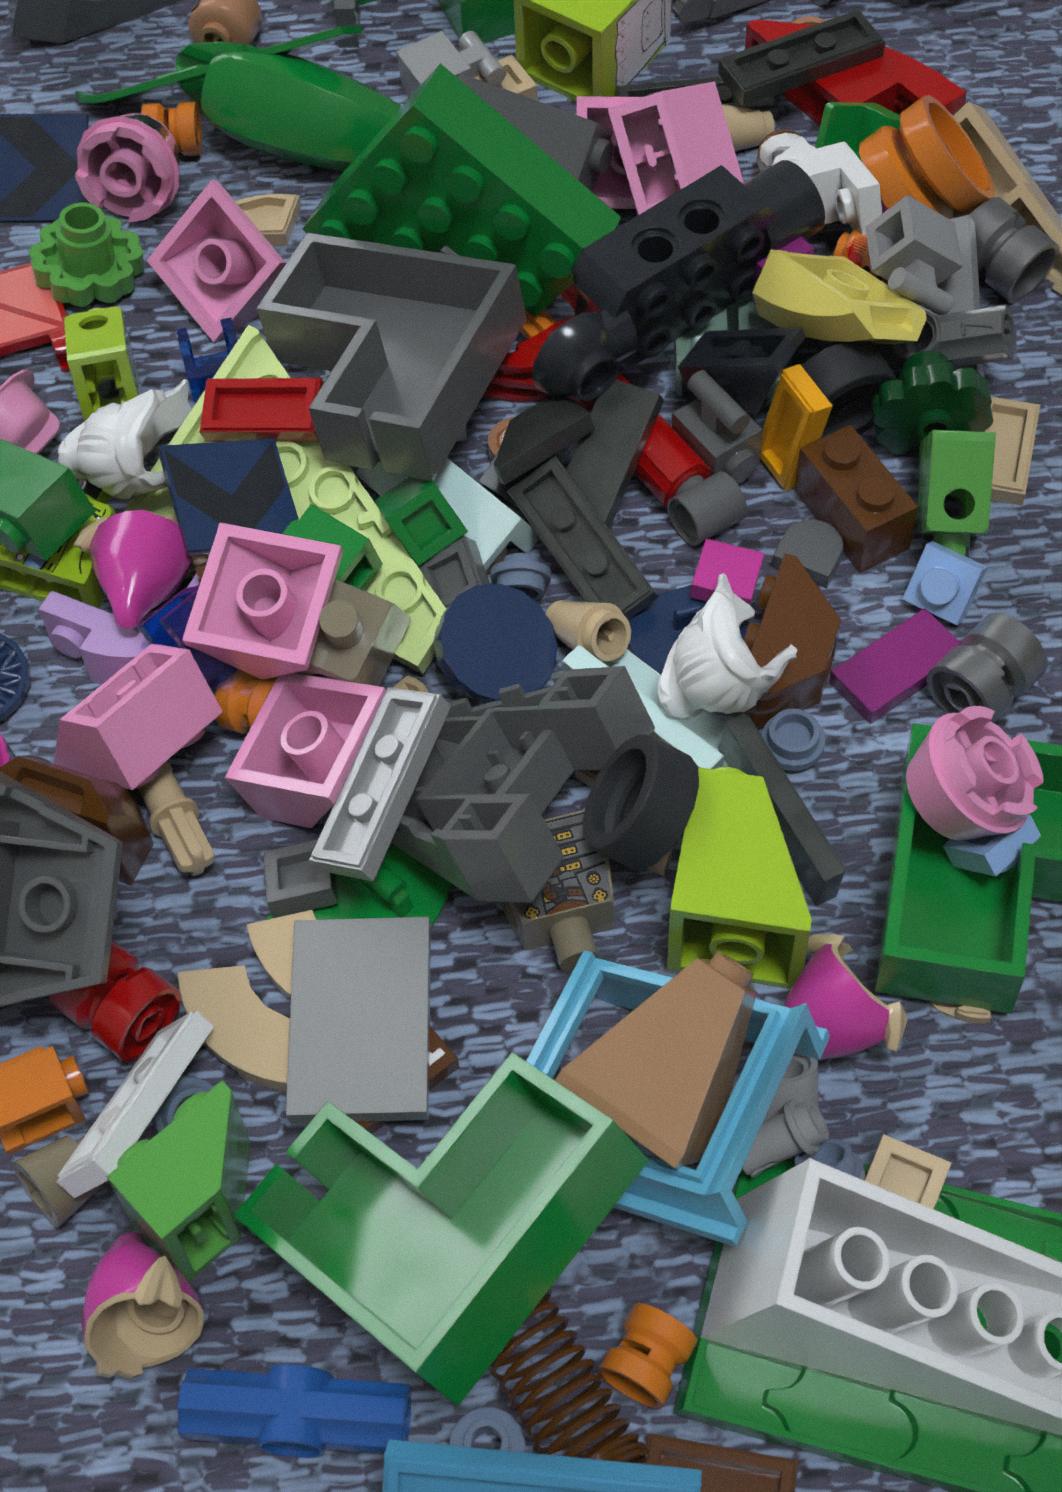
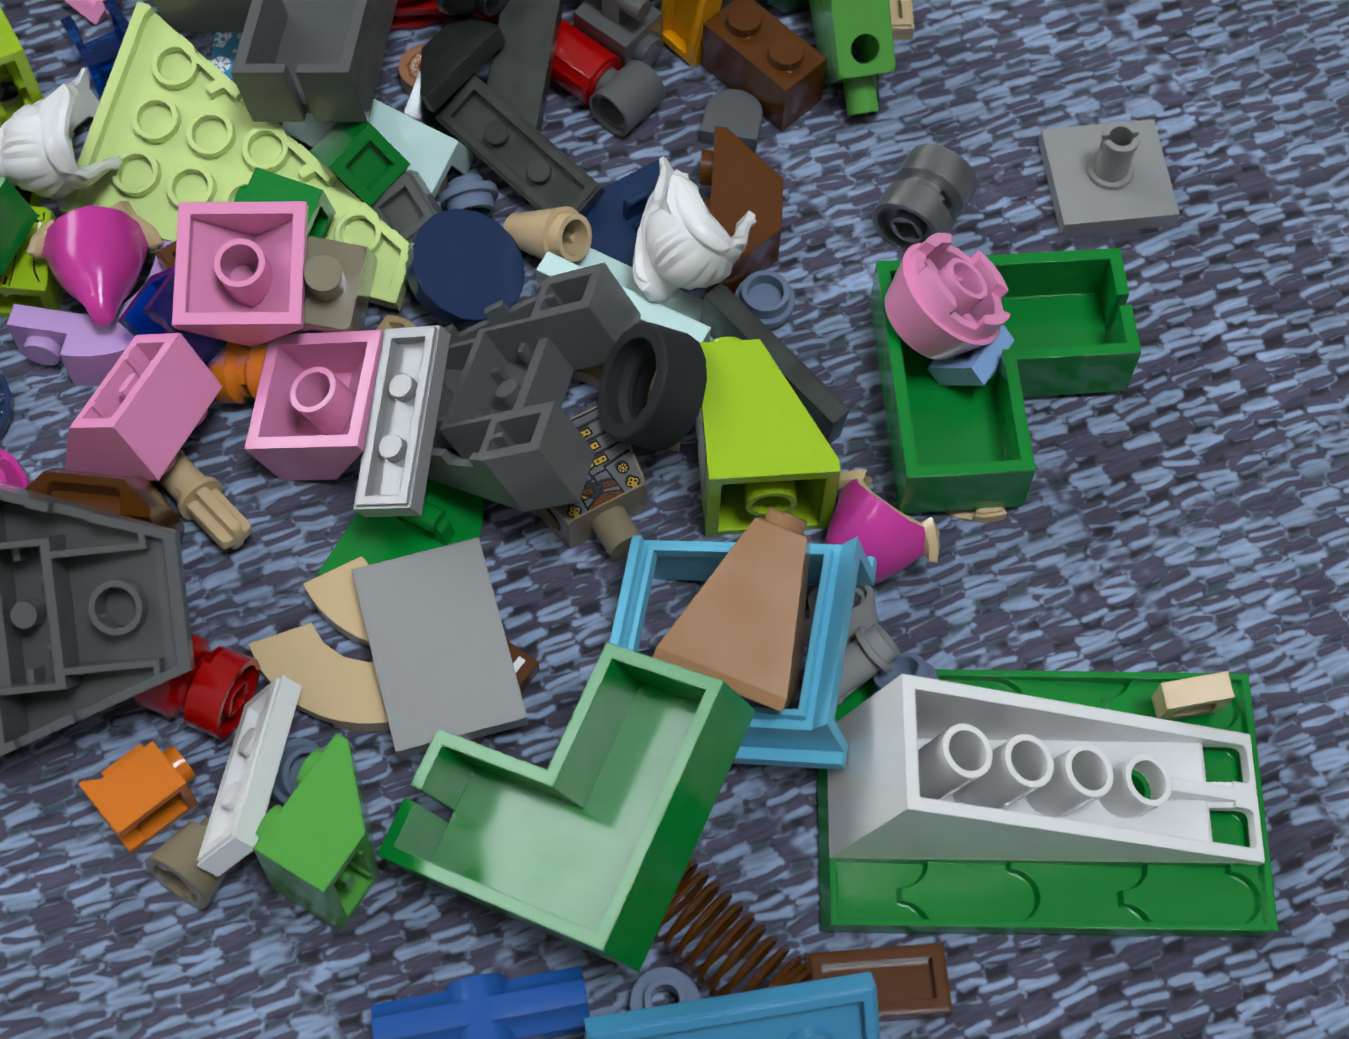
camera: 20 degrees left, 5 degrees up
(114, 1324) = (290, 984): tan hat -> none
(226, 484) = (163, 165): piece -> none
(259, 409) = (175, 83): red tile -> none
(295, 883) = (337, 530): dark grey tile -> none
(647, 1355) = (787, 885): orange wheel -> none
(737, 563) = (655, 143): dark pink tile -> none
(893, 666) = (837, 212): magenta tile -> none
(908, 1171) = (974, 664): tan tile -> none
(945, 583) = (864, 125): light blue plate -> none

